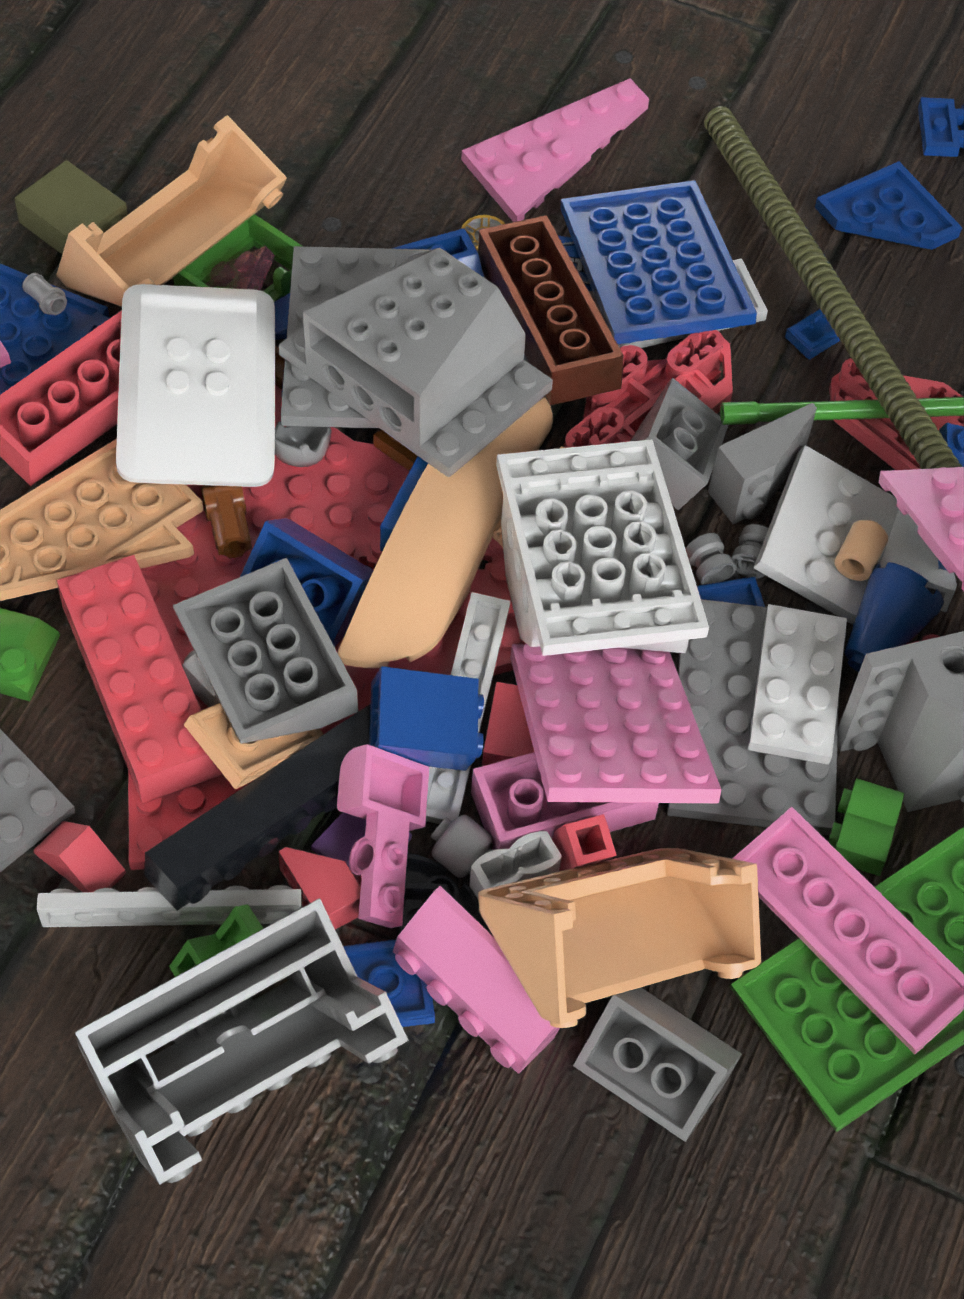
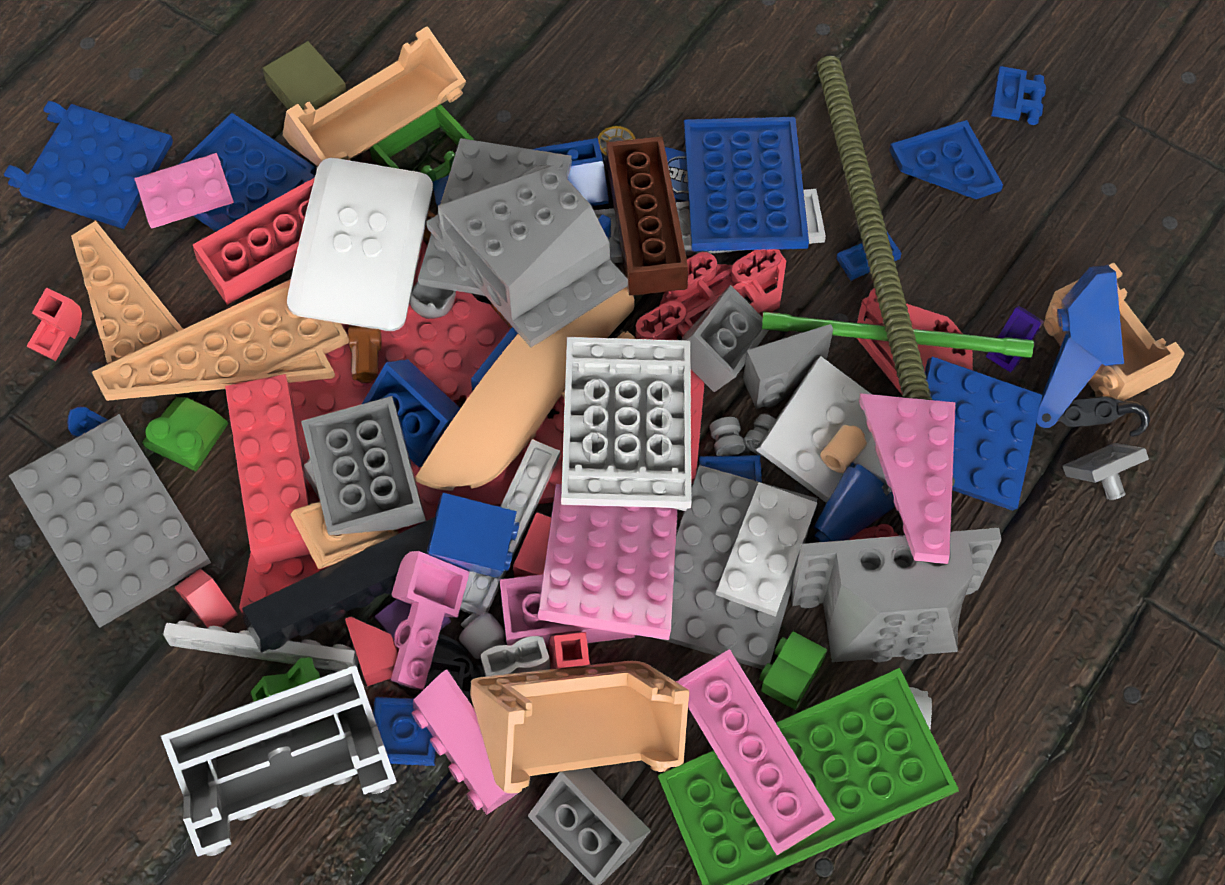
camera: 15 degrees right, 5 degrees up
(50, 299) = (271, 155): light grey pin -> none
(243, 272) = (419, 153): clear pink wing -> none
(547, 151) = (685, 75): bright pink wing -> none

